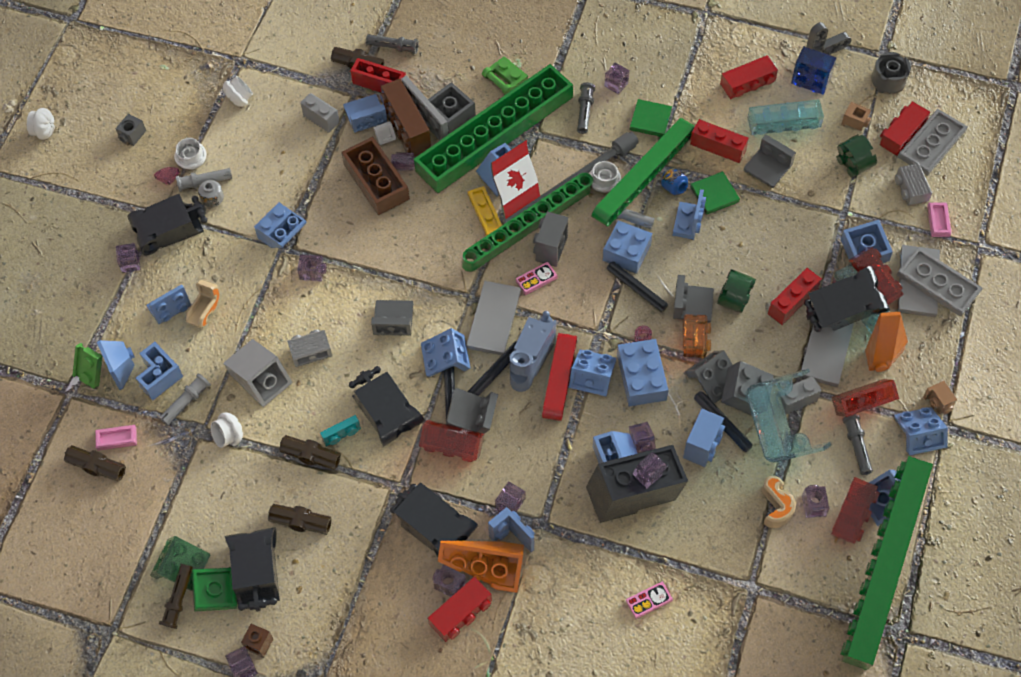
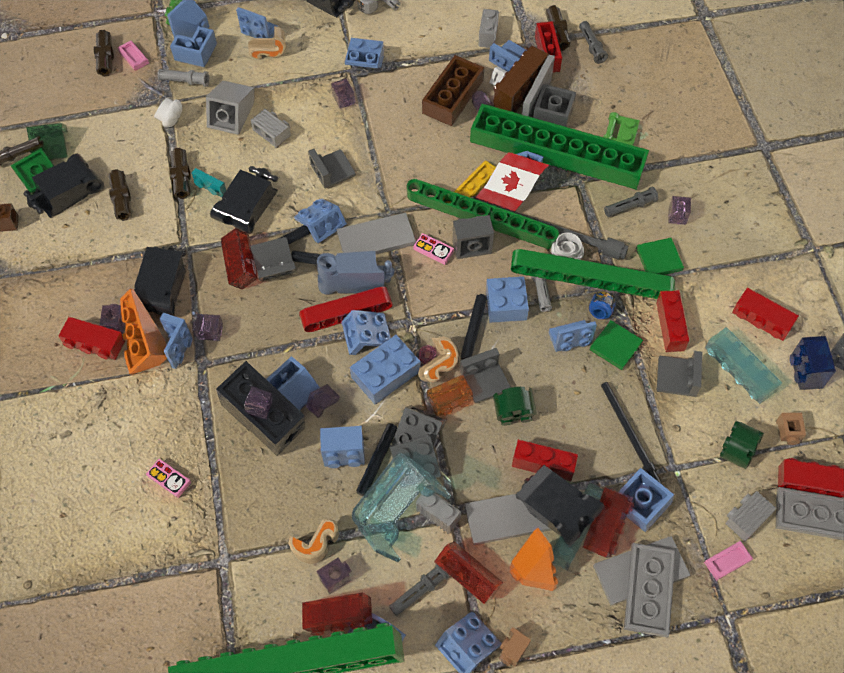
camera: 60 degrees right, 0 degrees up
(661, 325) = (444, 362): none -> tan animal
(837, 229) = (648, 466): none -> black bar

